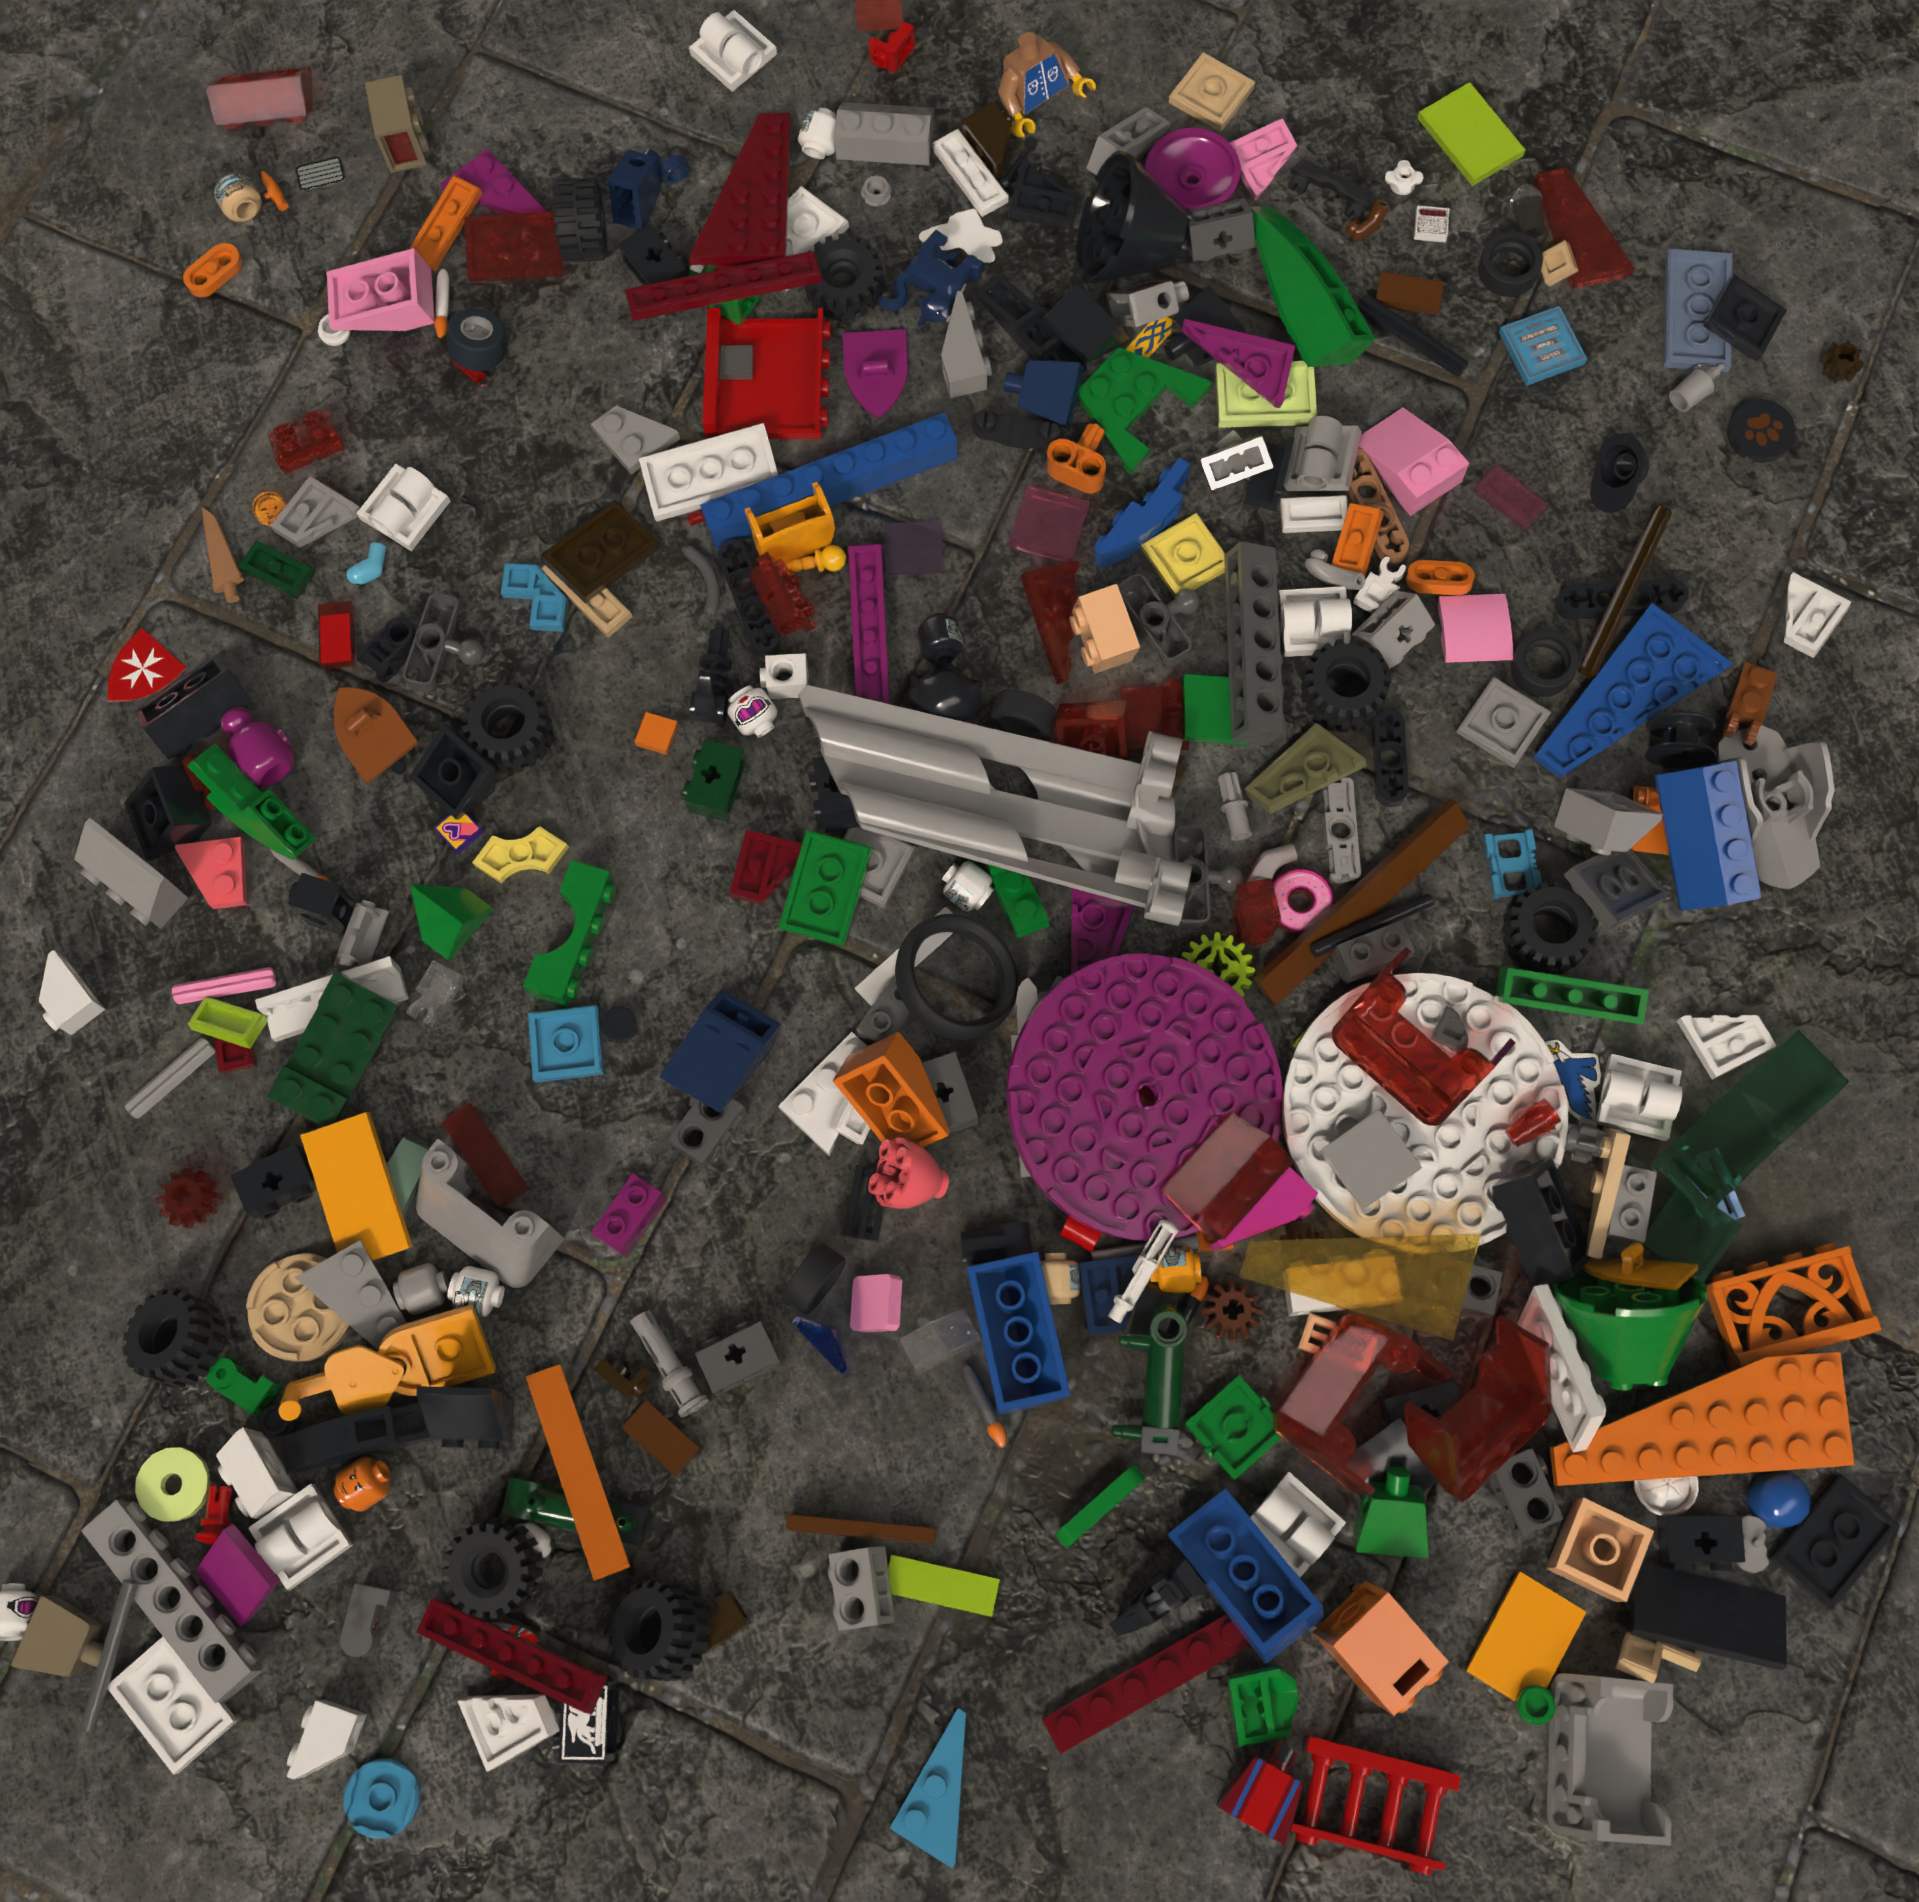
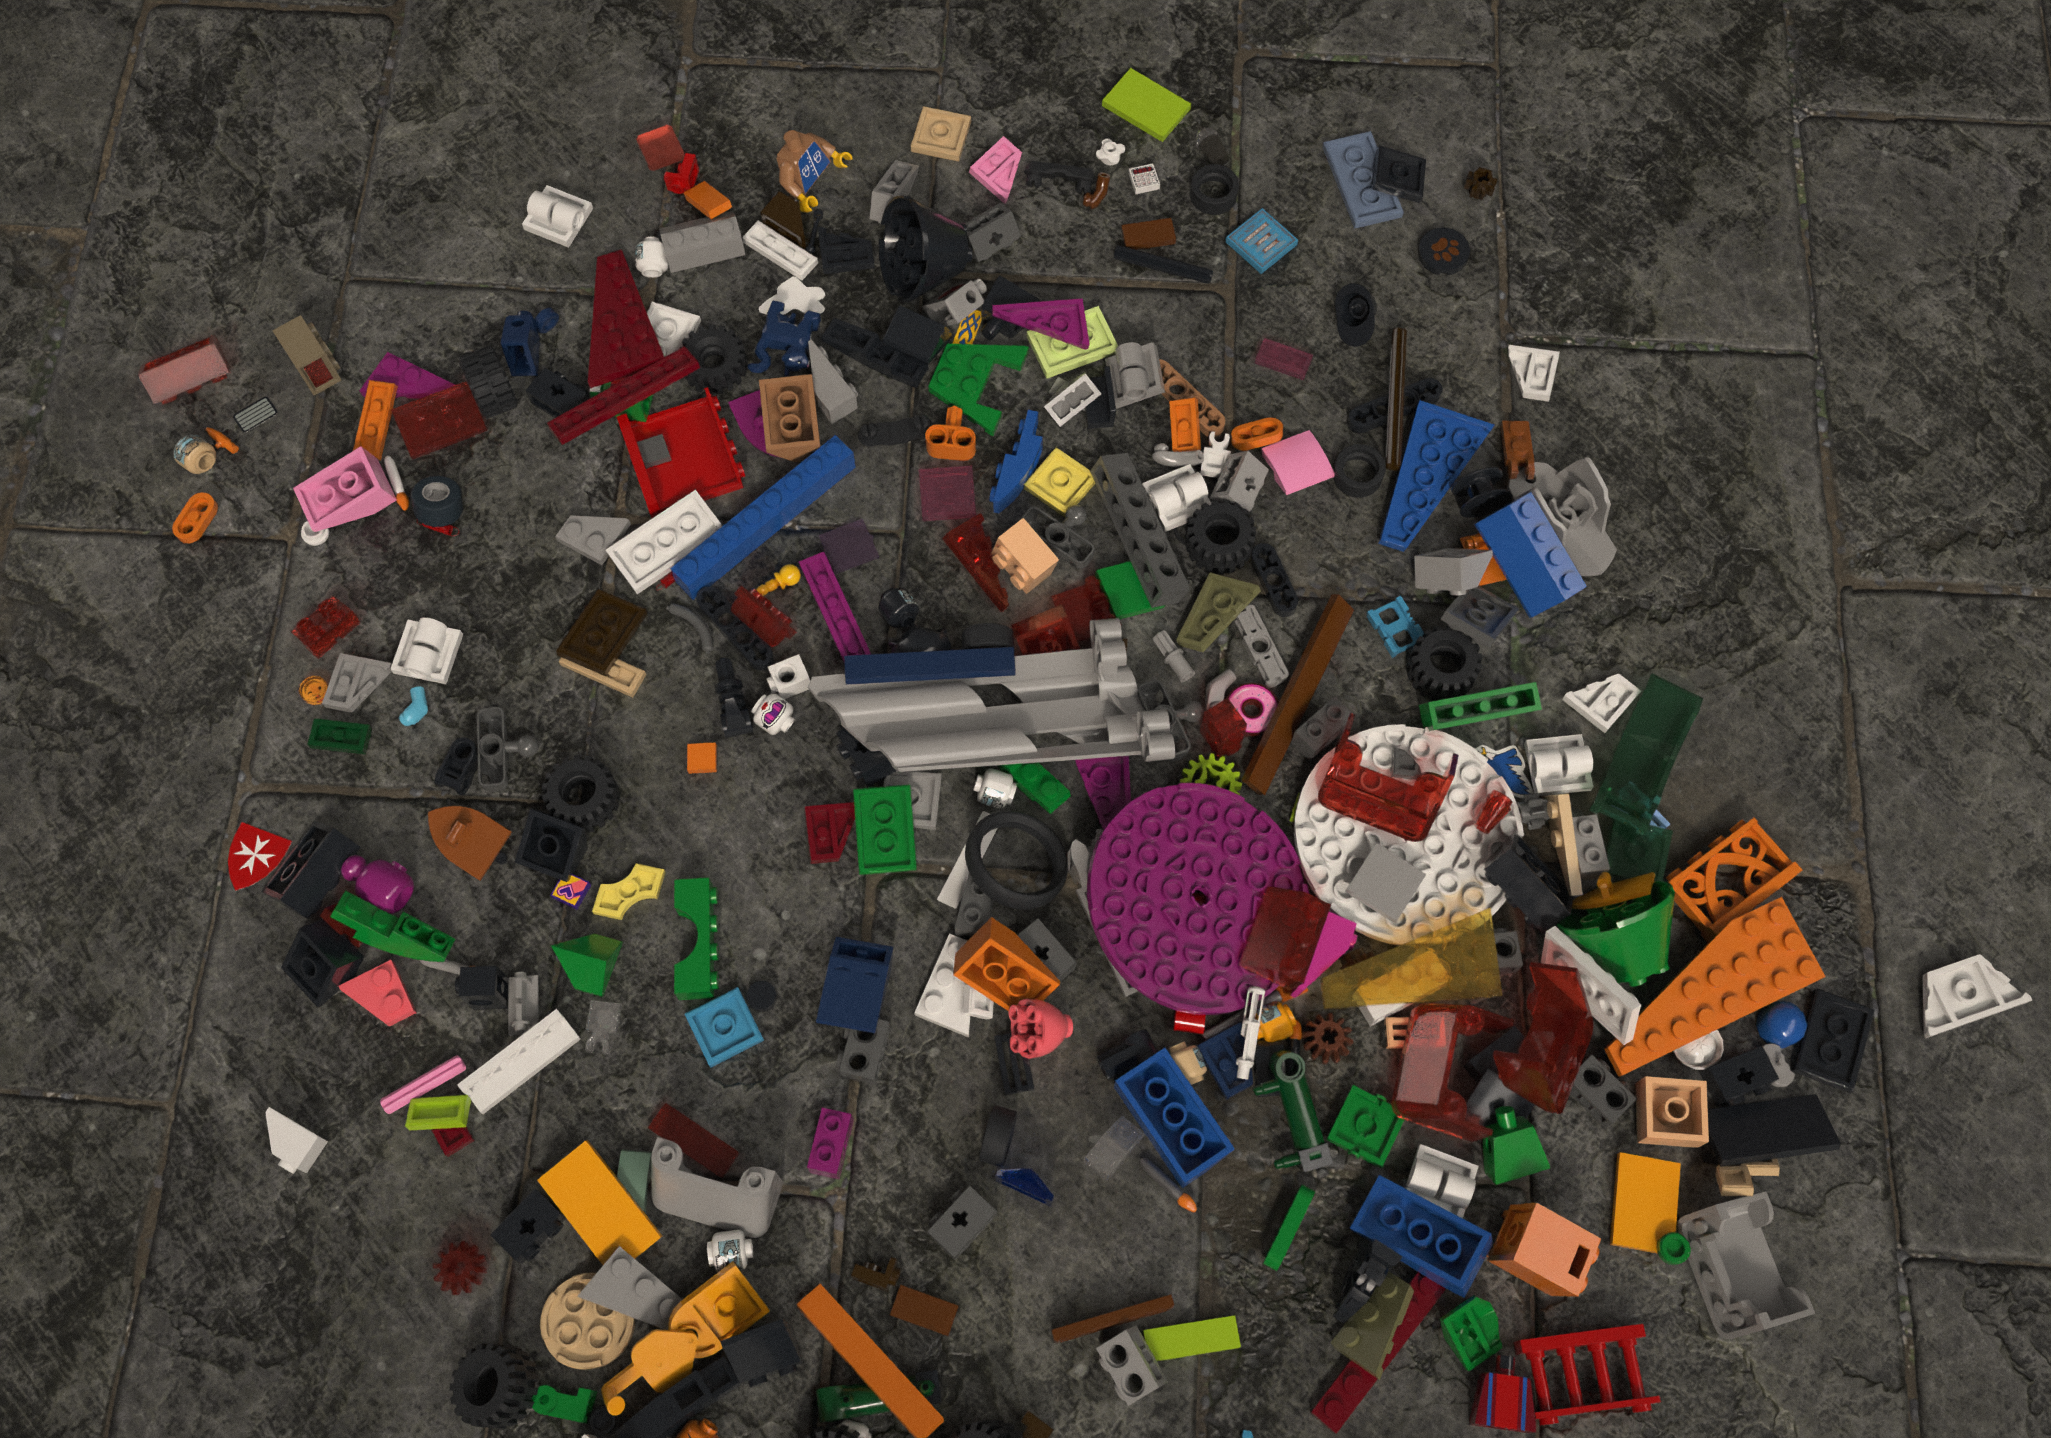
camera: 25 degrees left, 5 degrees down
(127, 876) = (308, 1024): light grey slope -> none
(169, 1078) = (405, 1176): light grey axle -> none
(222, 562) = (292, 748): medium nougat bar -> none
(334, 1050) = (538, 1101): dark green piece -> none
(336, 635) = (409, 771): tile -> none
(421, 1289) = (683, 1267): light grey head -> none
(548, 602) = (554, 675): dark azure tile -> none
(676, 1377) = (918, 1257): light grey pin -> none
(717, 798) = (765, 793): dark green brick -> none
(795, 528) = (752, 561): light orange piece -> none
(876, 184) = (712, 281): light grey plate -> none
(876, 1303) = (1053, 1137): bright pink piece -> none
(902, 374) = (790, 417): none -> medium nougat slope
(909, 85) = (707, 200): none -> orange tile
(944, 718) = (929, 665): none -> dark blue tile
(1047, 389) = (906, 392): dark blue torso -> none
(1144, 1656) = (1370, 1330): none -> olive wing
(1198, 158) = (957, 185): magenta dish -> none
(1309, 293) = (1076, 257): green wedge -> none
(1313, 513) = (1143, 418): white tile -> none
(1375, 923) = (1312, 708): black bar -> none
(1413, 459) = (1202, 354): bright pink slope -> none
(1503, 722) = (1346, 524): light grey tile -> none
(1558, 263) = (1249, 177): tan tile -> none
(1577, 222) = (1255, 152): clear red wing -> none
(1700, 383) = (1386, 232): light grey piece -> none

